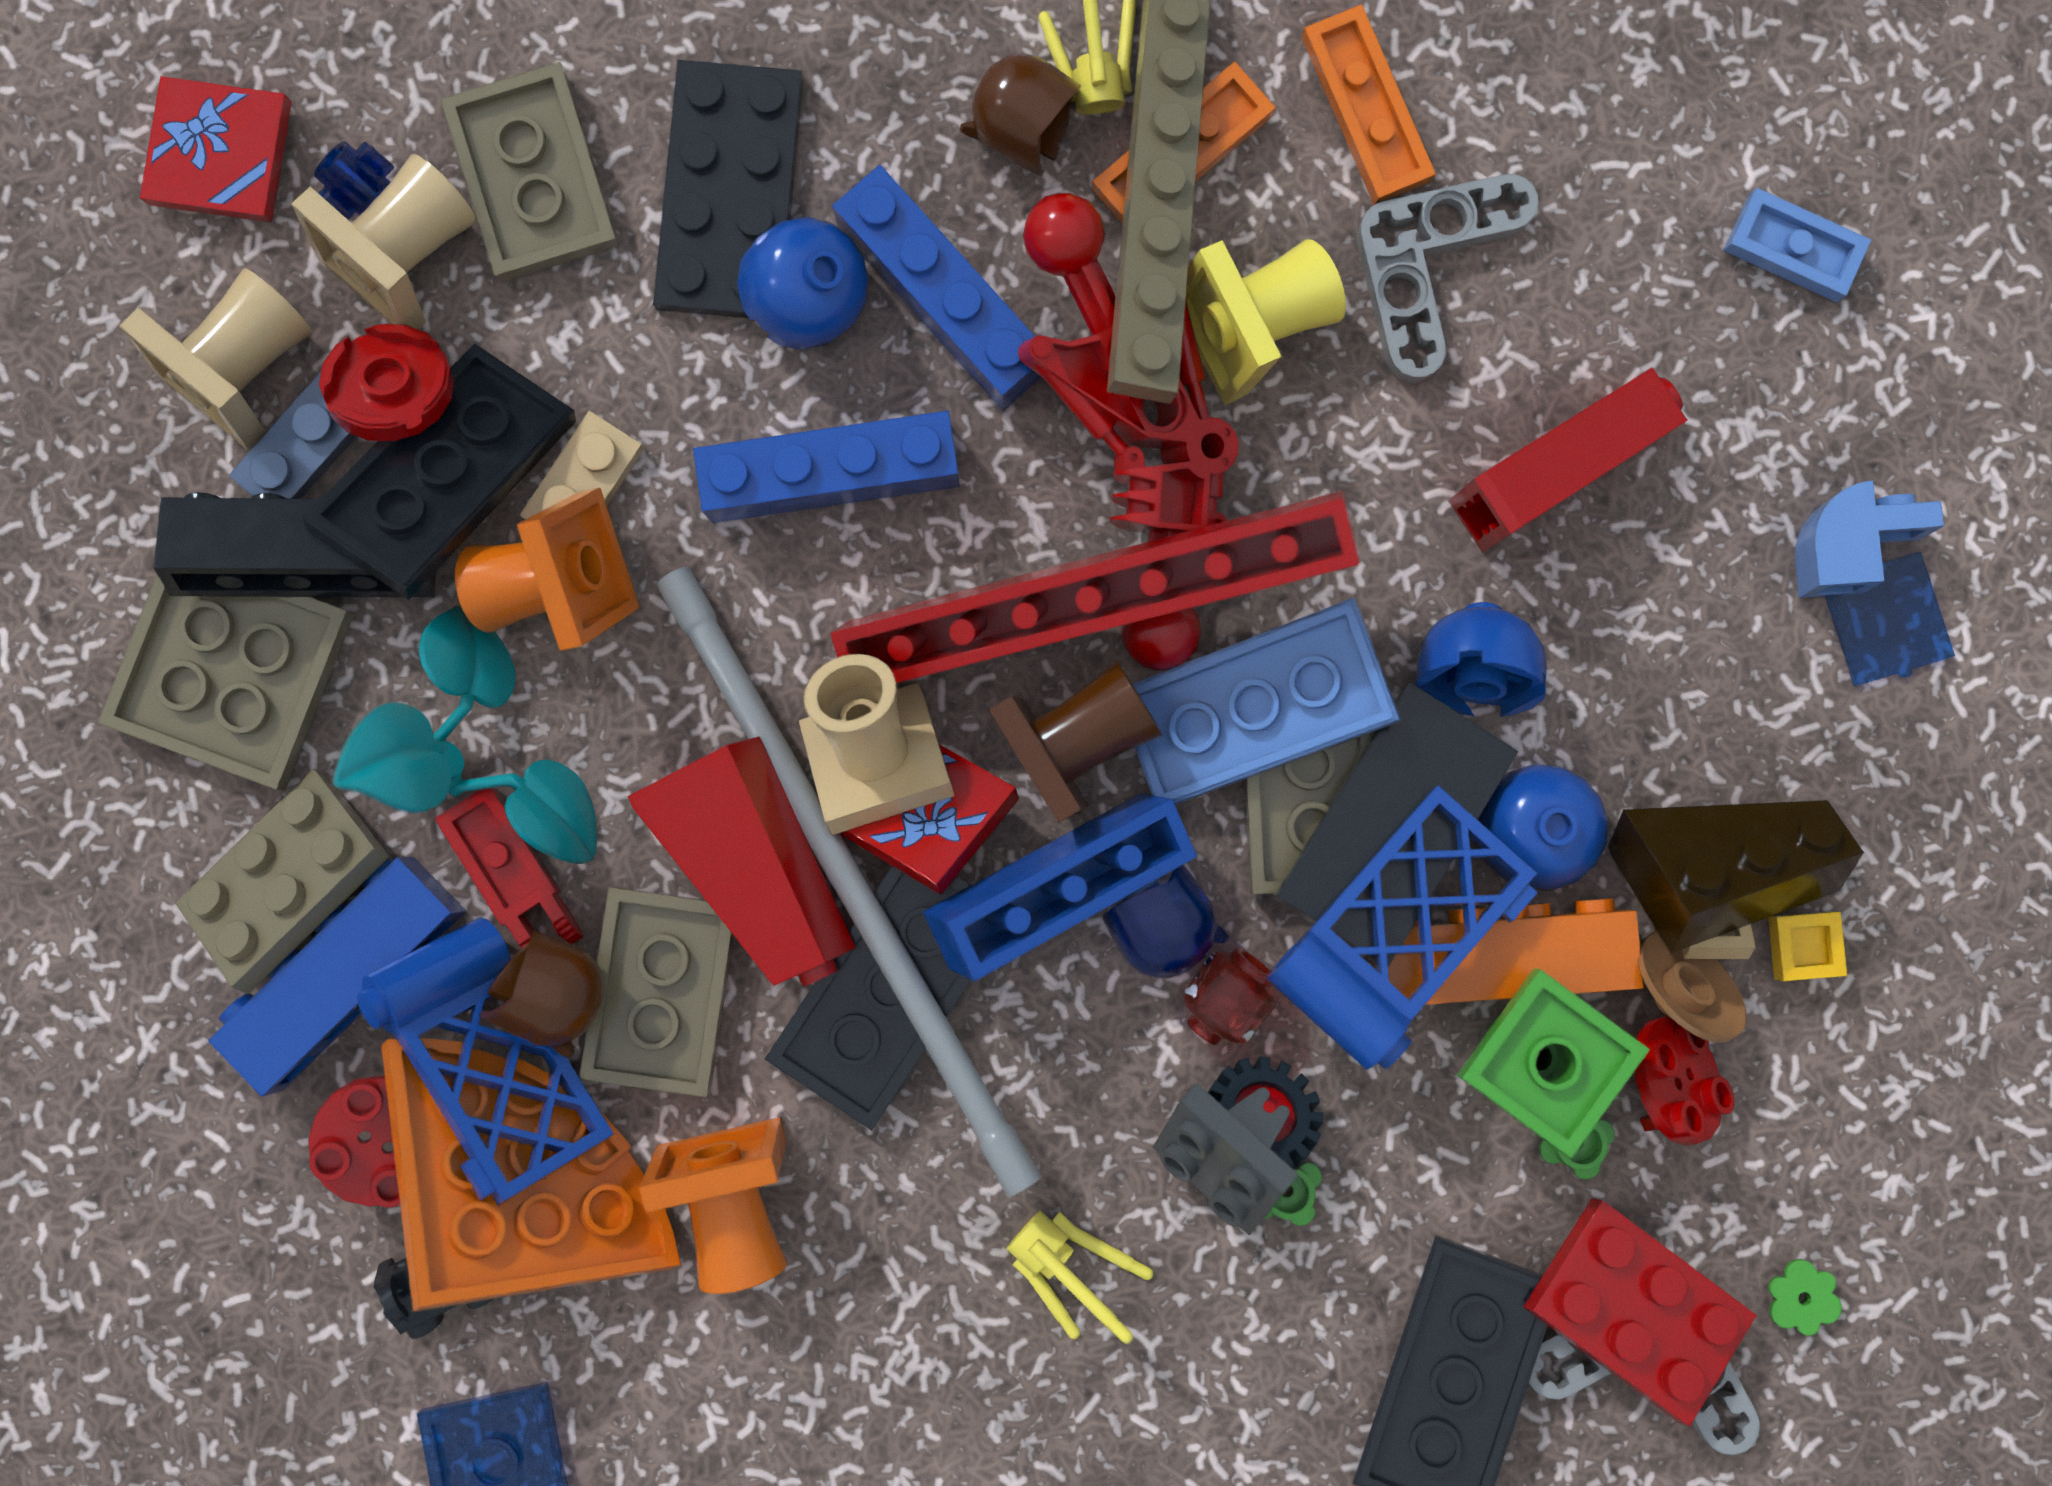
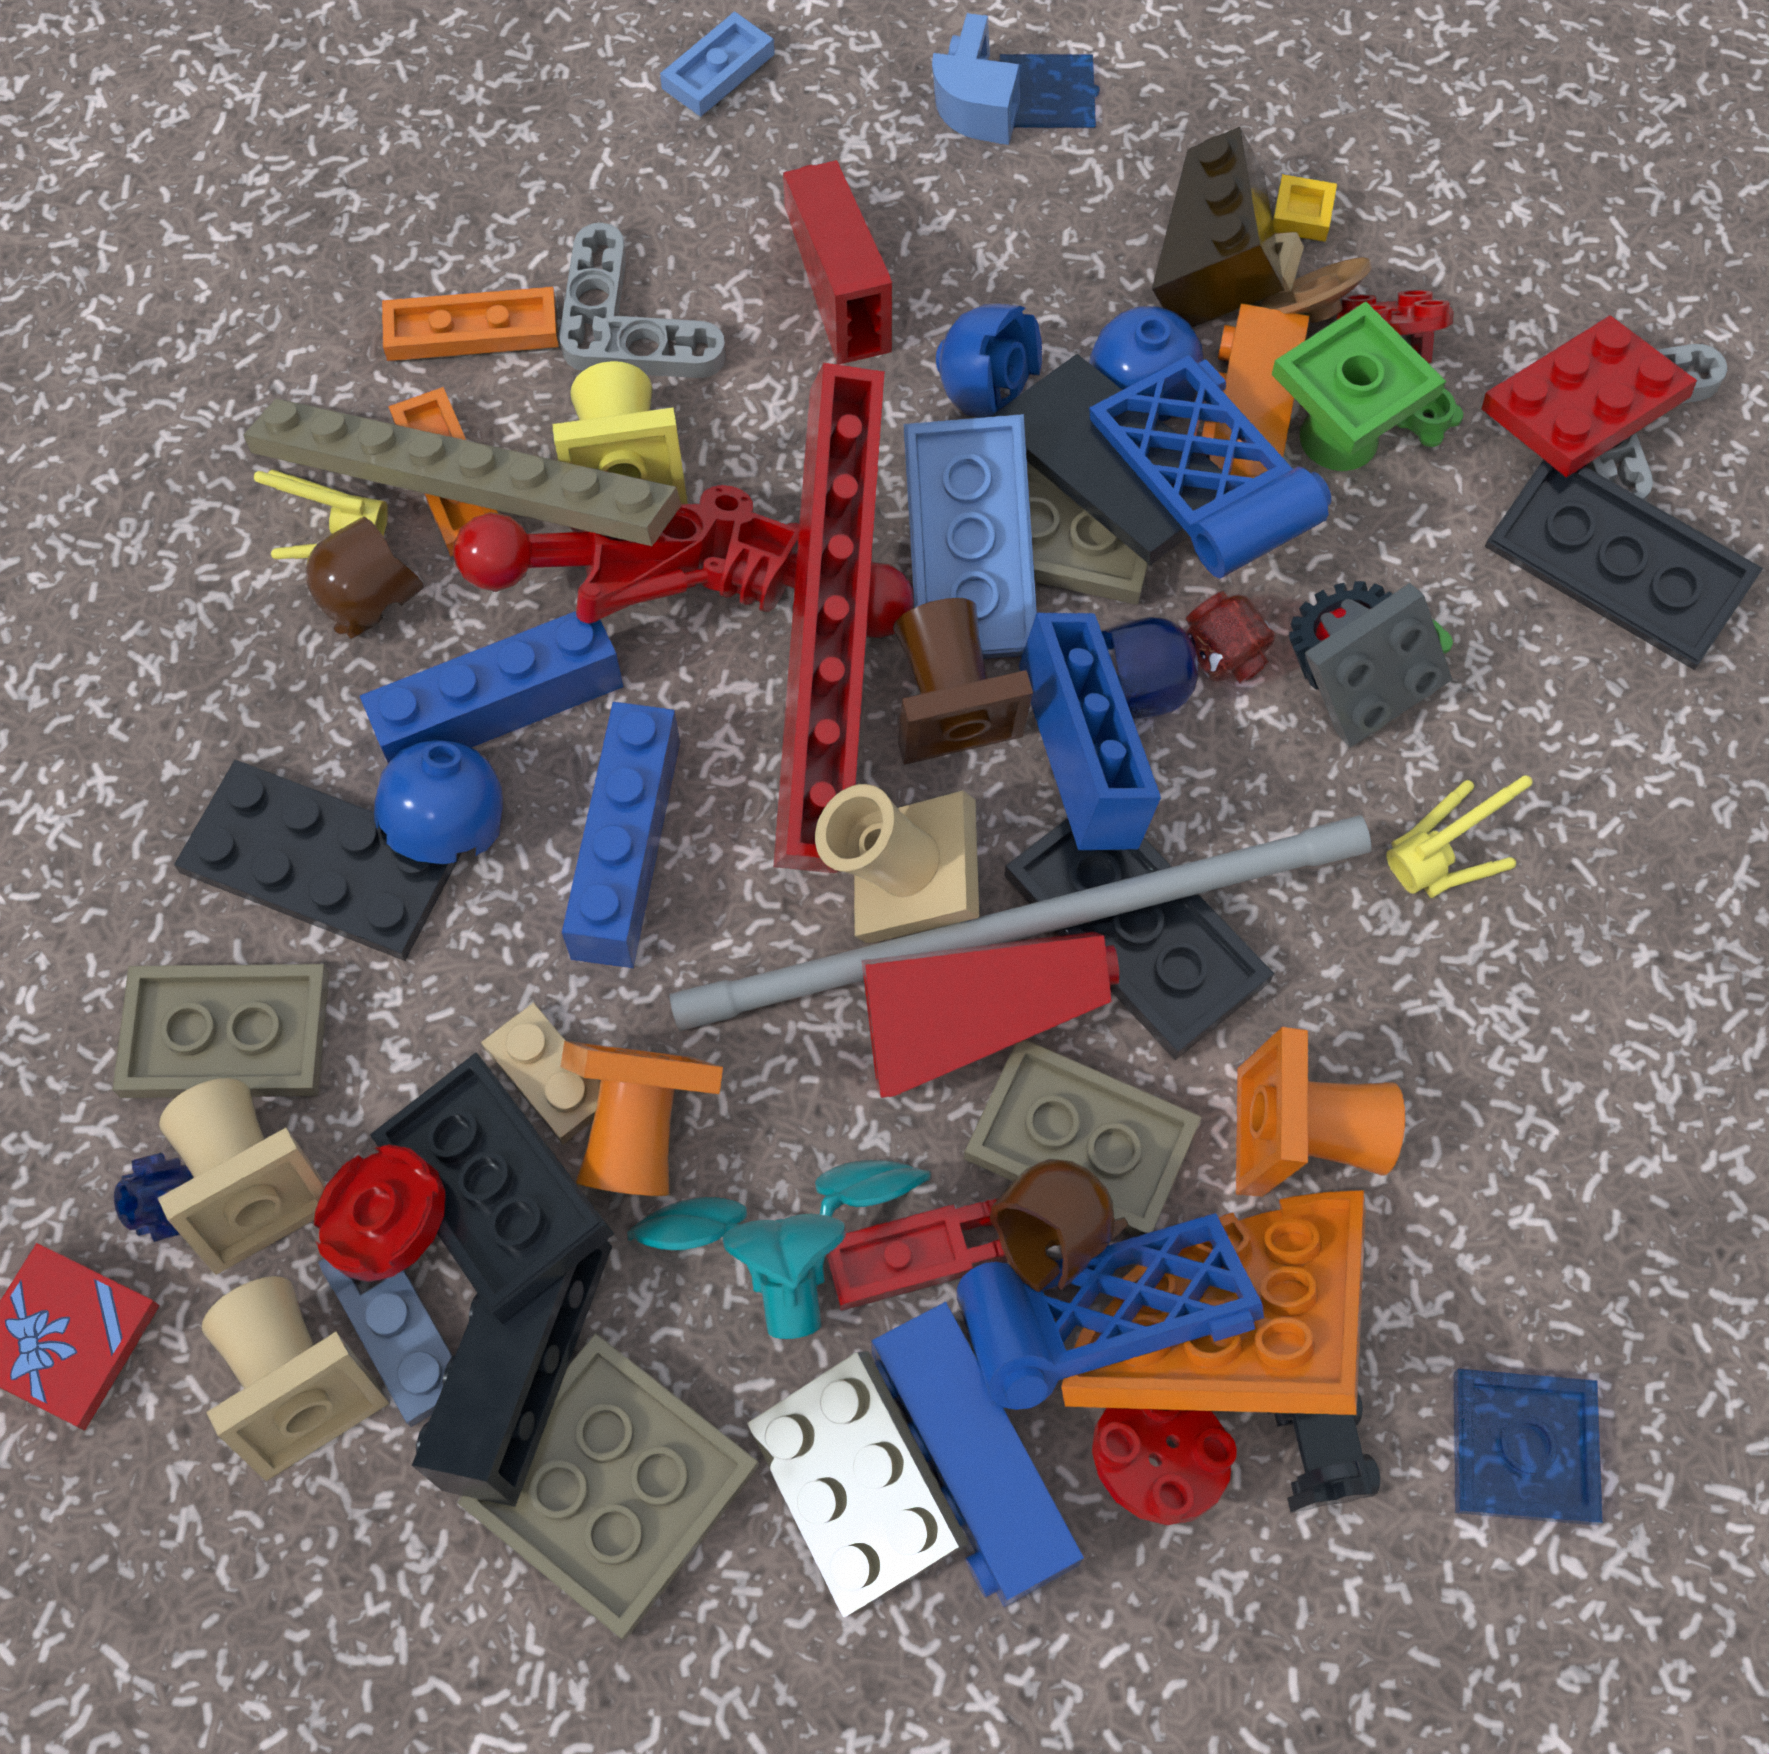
camera: 70 degrees left, 20 degrees down
(941, 836) = (1010, 823): red tile -> none
(1818, 1306) = (1601, 290): bright green plant -> none

